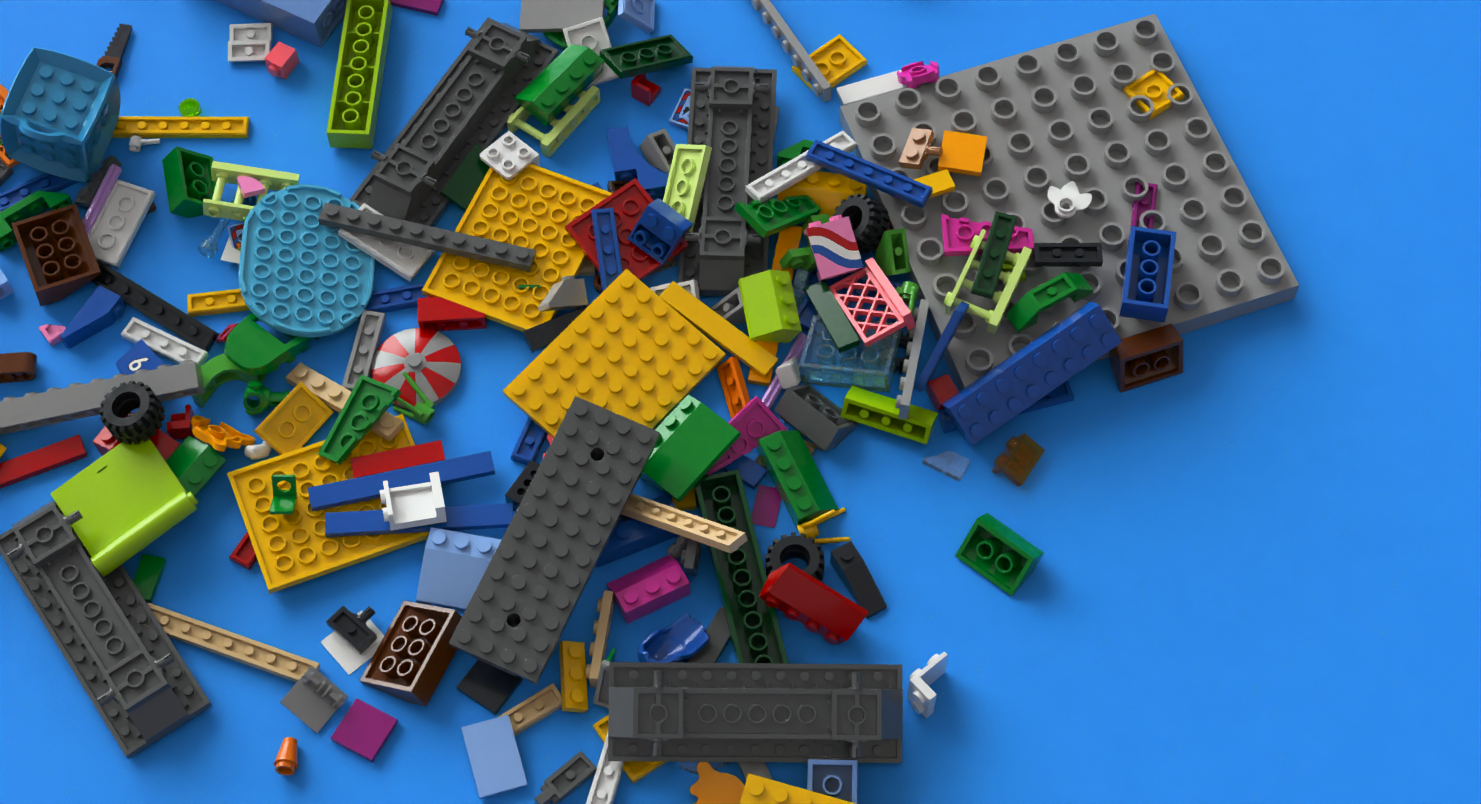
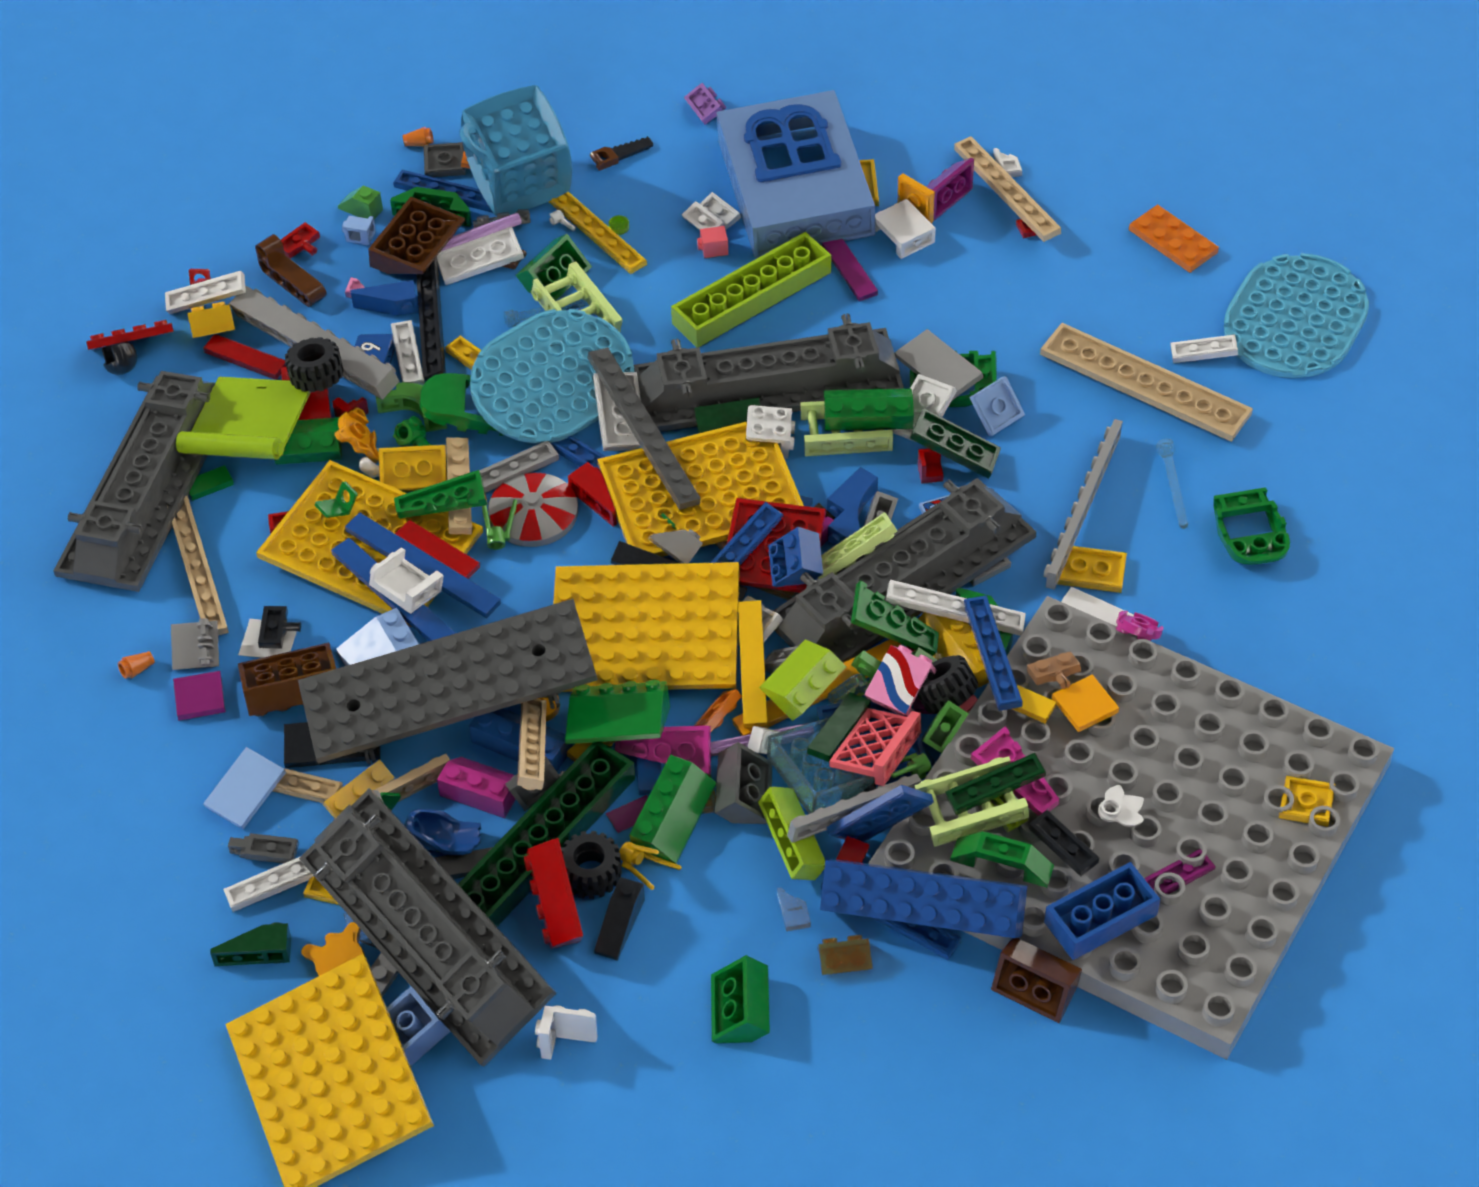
camera: 50 degrees right, 10 degrees down
(250, 186) = (578, 298): bright pink tile -> none

